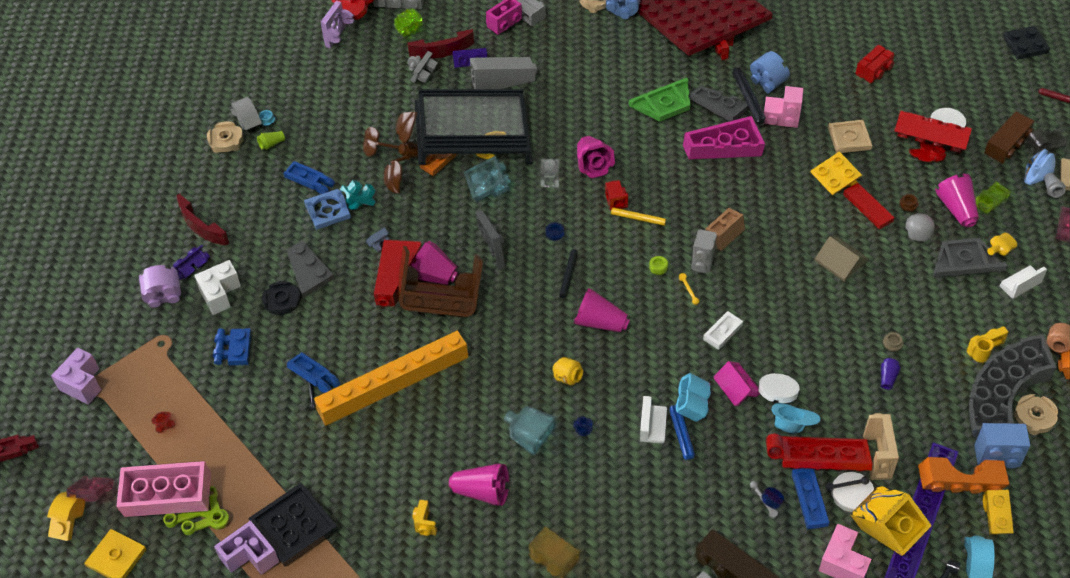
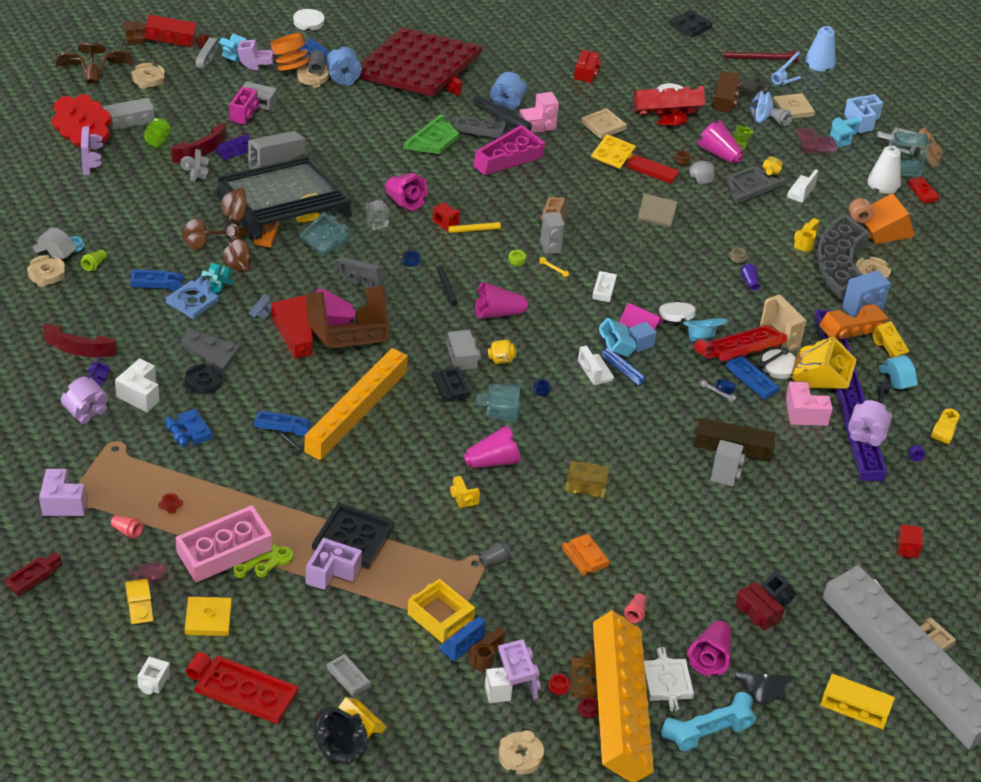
camera: 35 degrees left, 10 degrees down
(112, 431) = (128, 526): none -> coral cone
(495, 389) = (451, 384): none -> black plate
(531, 354) = (463, 350): none -> light grey brick
(721, 405) = (645, 336): none -> medium blue panel

